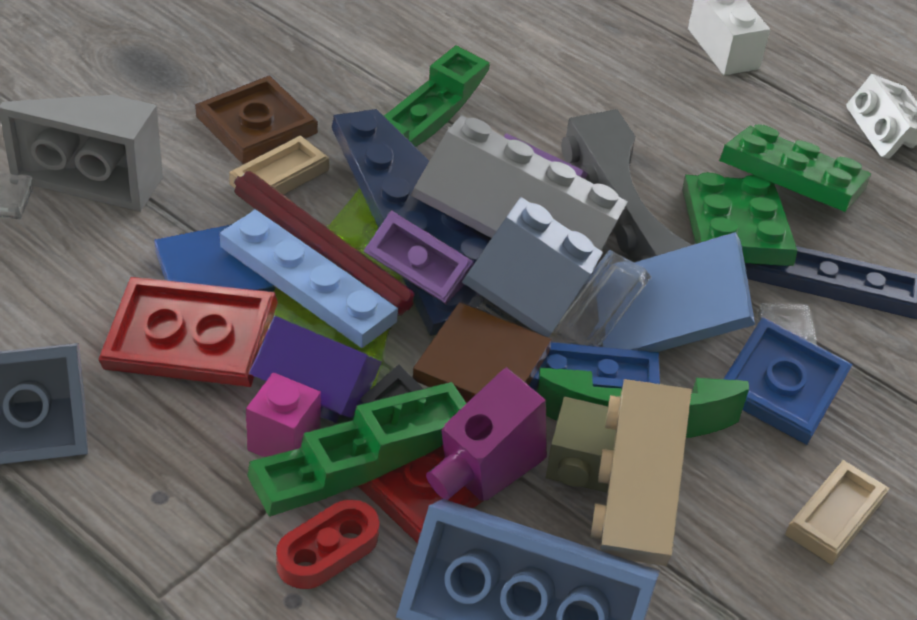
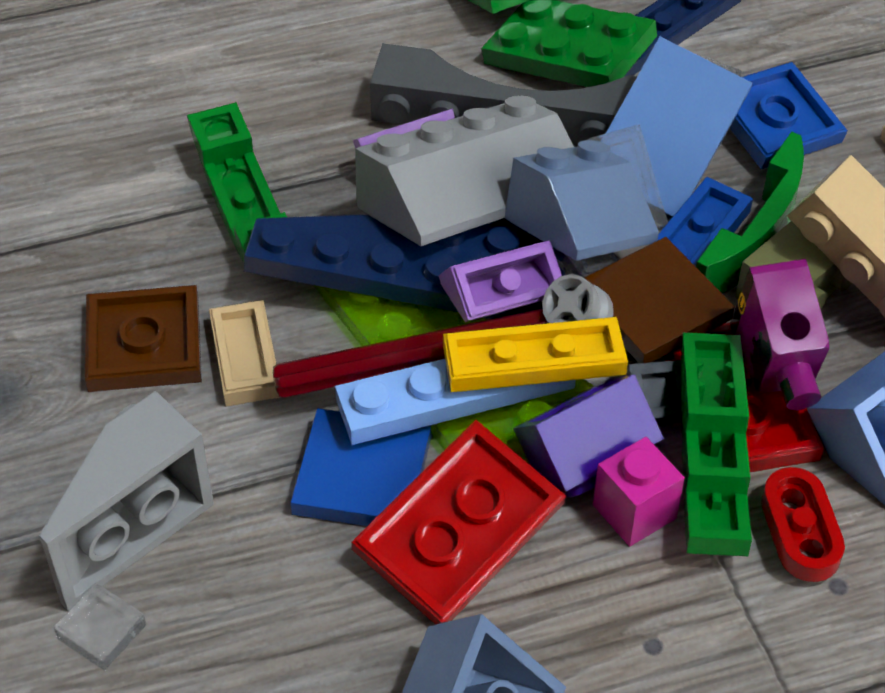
camera: 55 degrees left, 5 degrees up
(352, 295) = (534, 354): none -> yellow tile
(425, 308) = (565, 296): none -> light grey wheel

